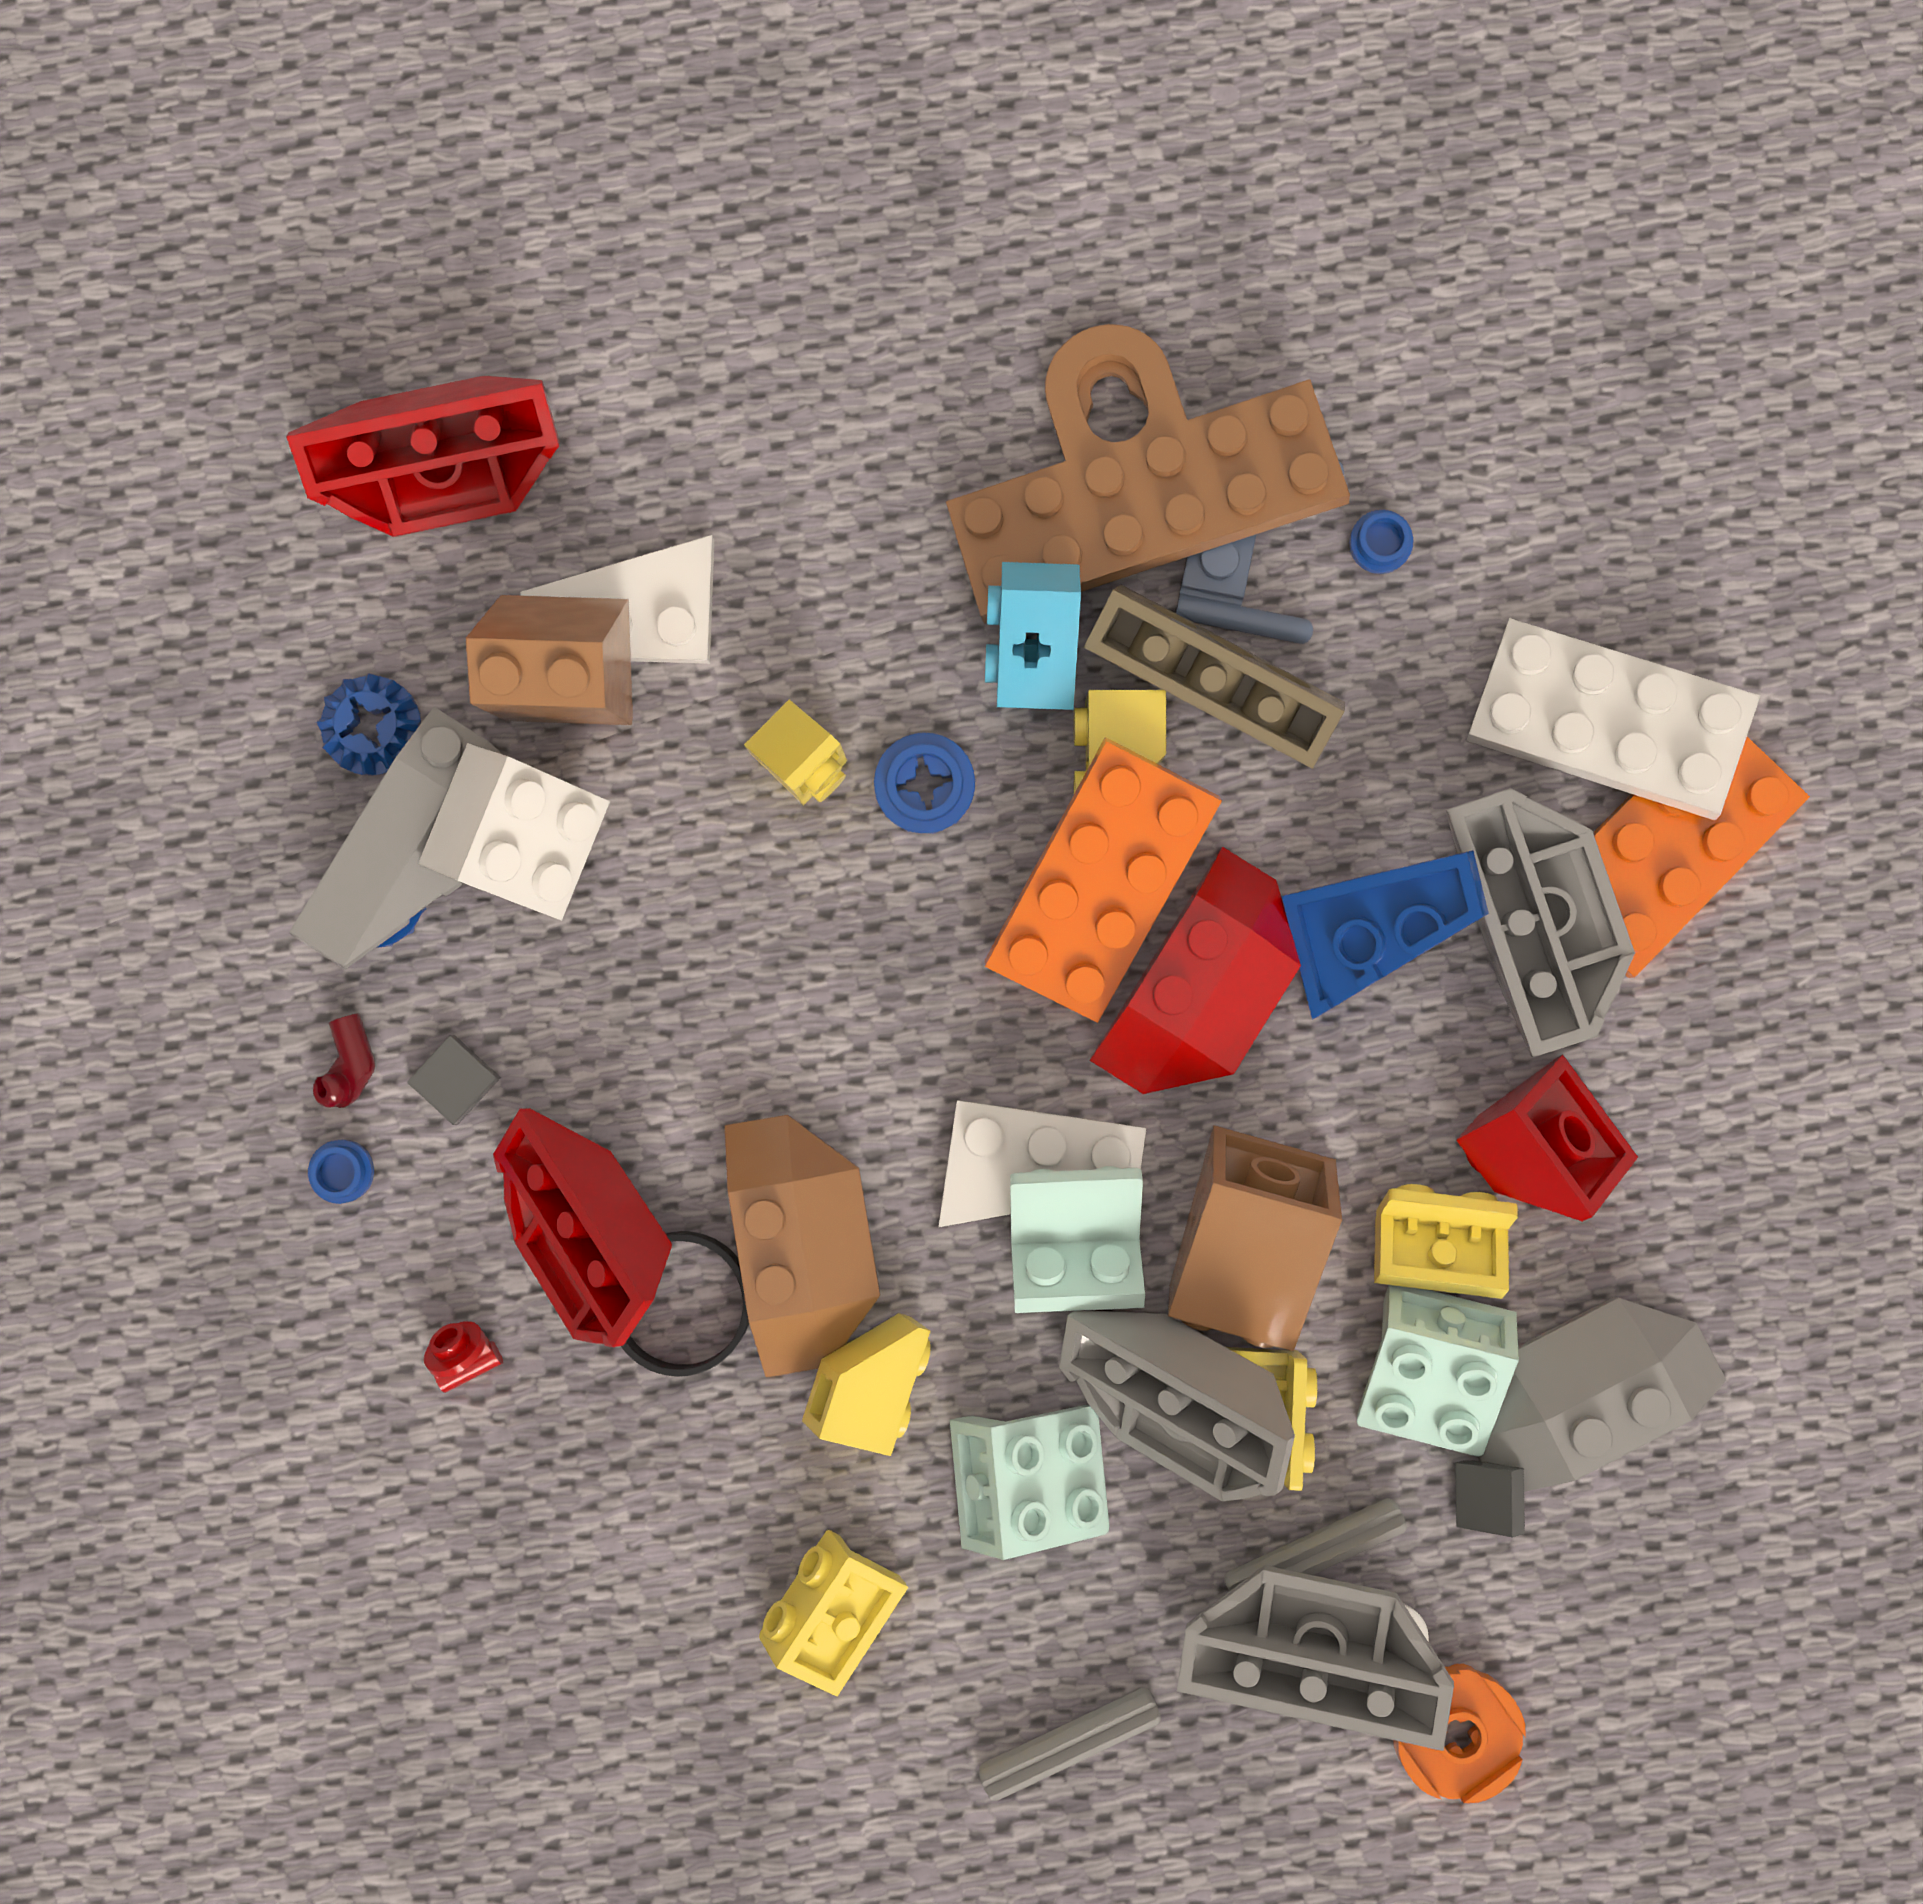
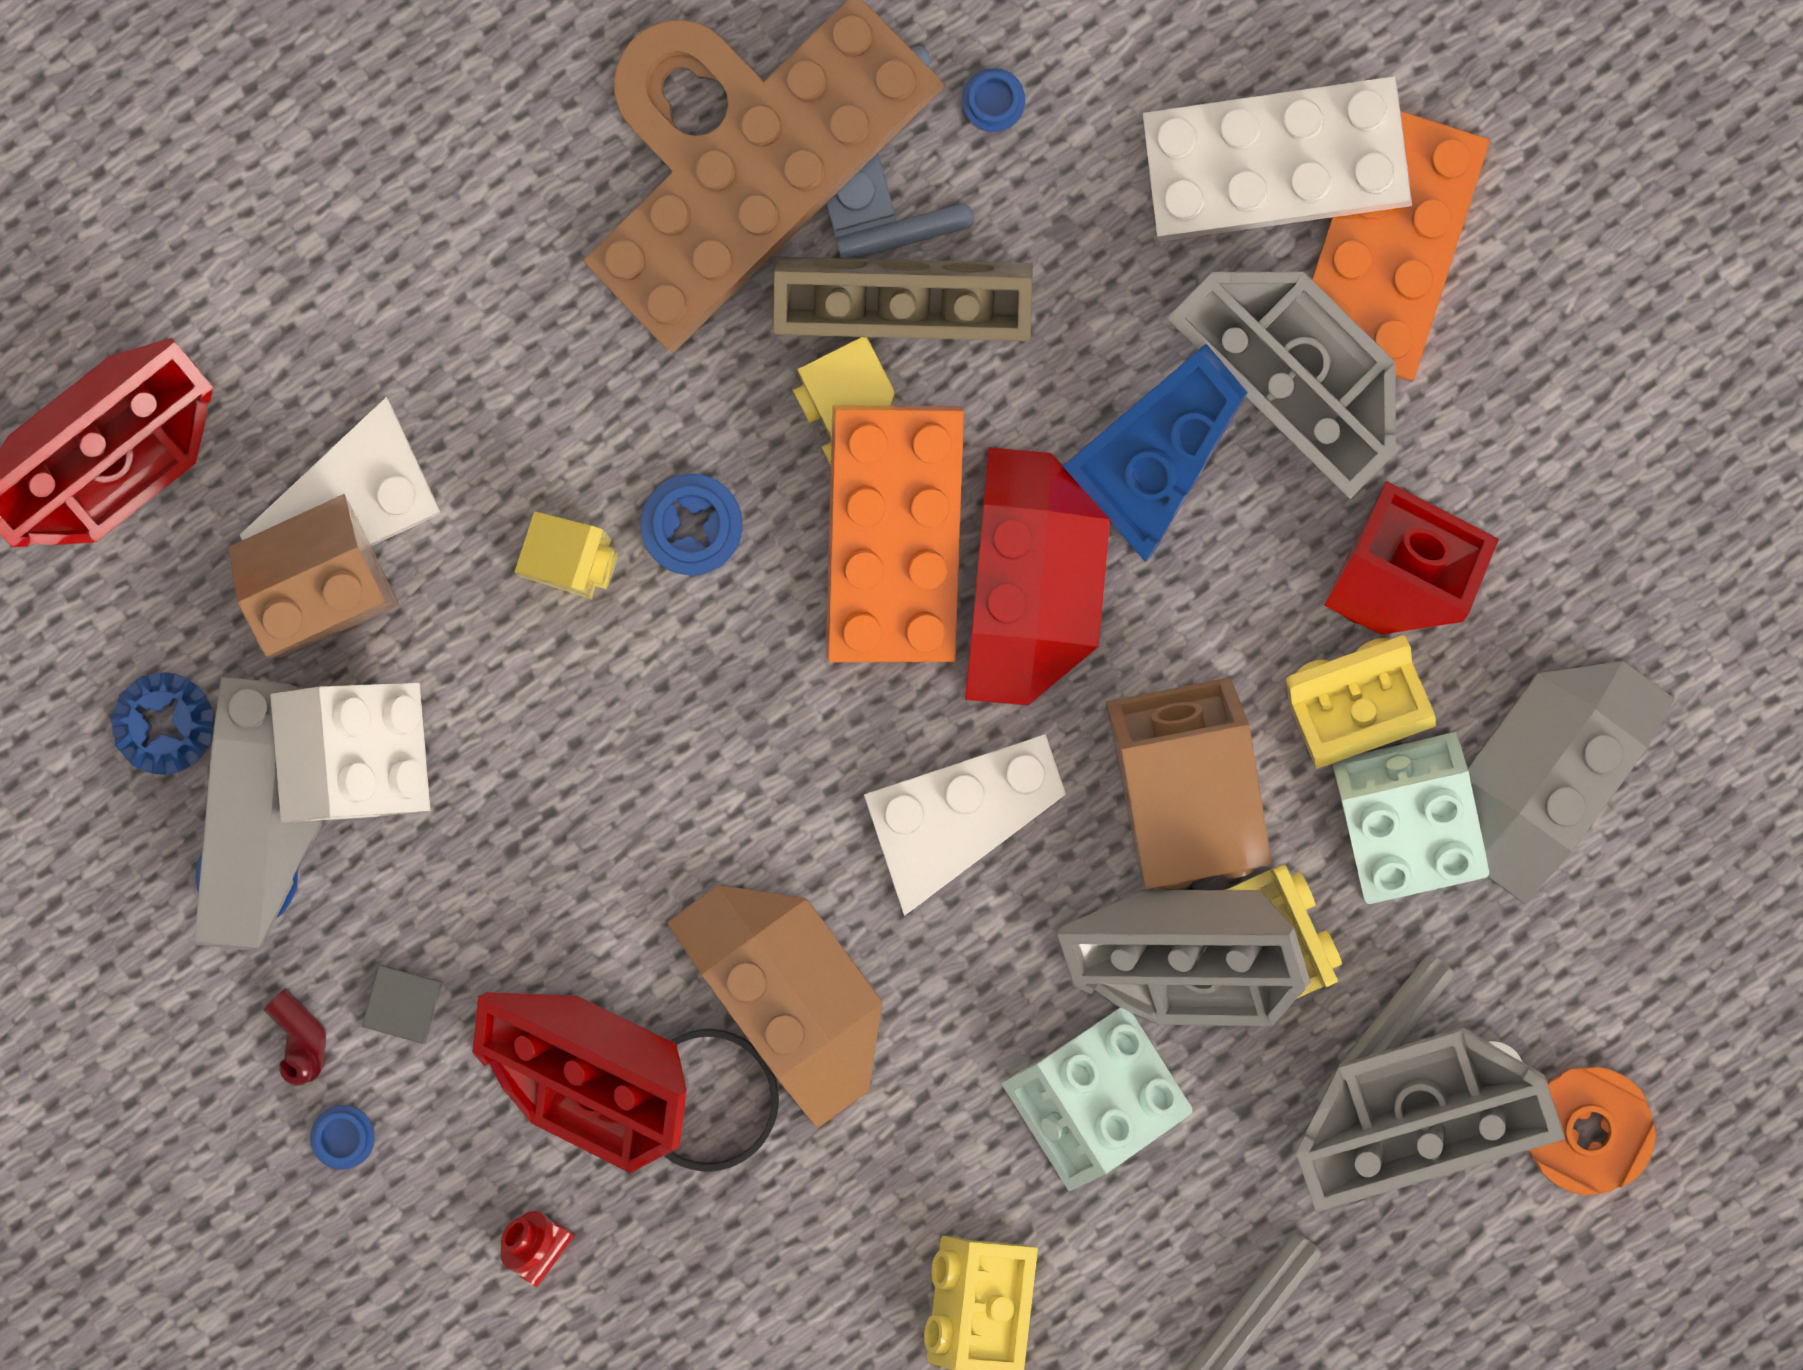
camera: 30 degrees left, 0 degrees up
(867, 1386) = (911, 1085): light yellow slope -> none
(1039, 601) = (718, 313): medium azure brick -> none
(1076, 1239) = (1031, 862): light aqua bracket -> none
(1490, 1498) = (1513, 907): dark grey tile -> none

